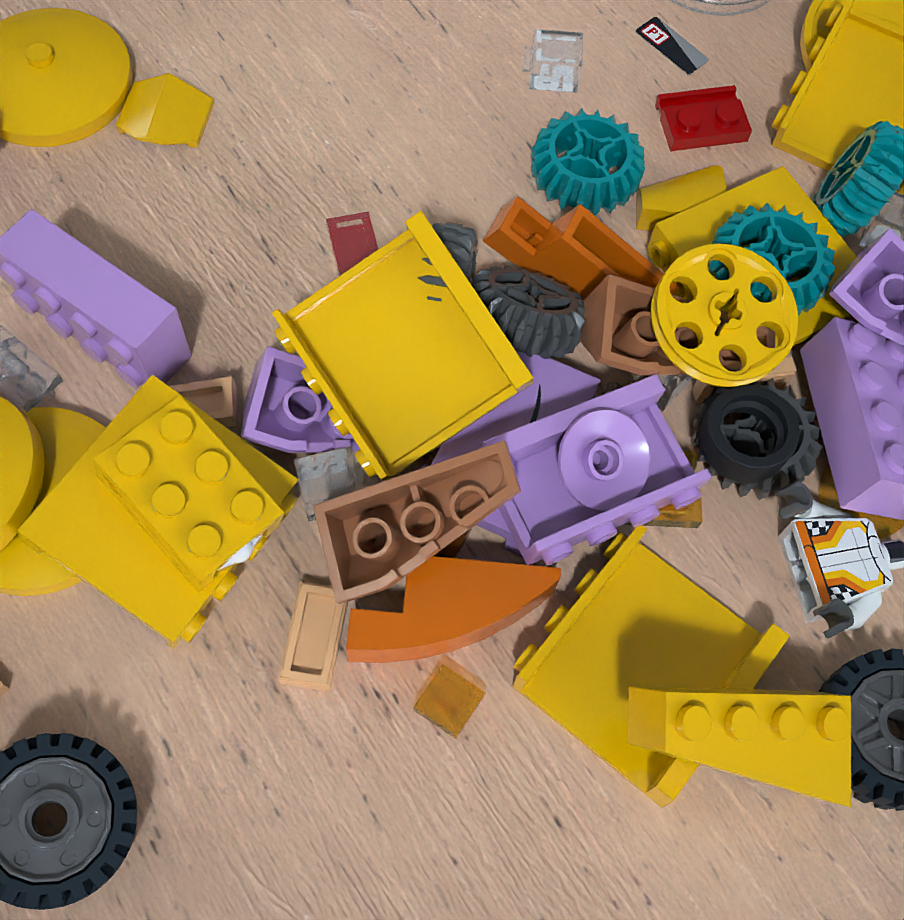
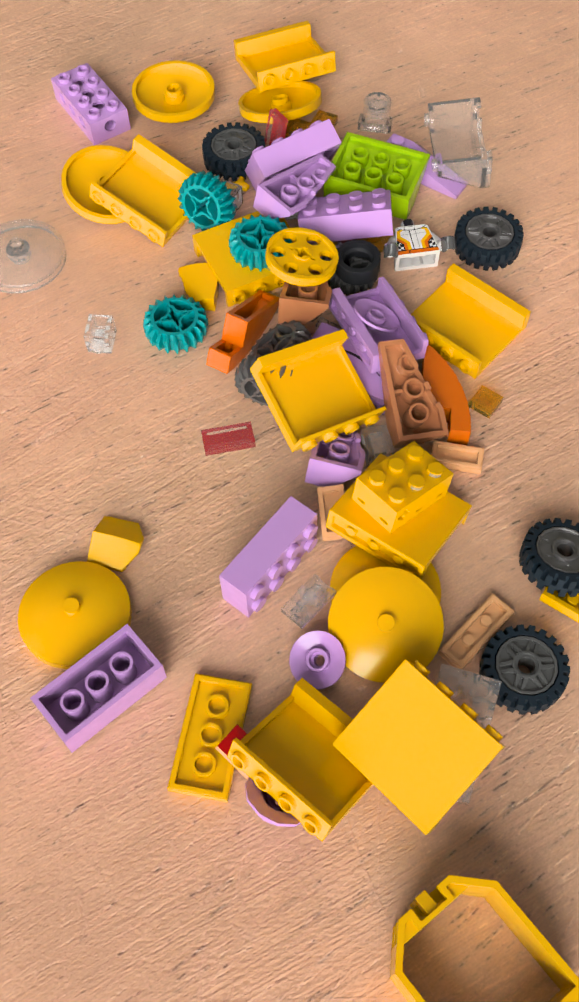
camera: 80 degrees left, 5 degrees down
(672, 45) = (86, 283): sticker -> none
(703, 118) = (144, 273): red plate -> none
(759, 734) = (502, 276): yellow wedge -> none

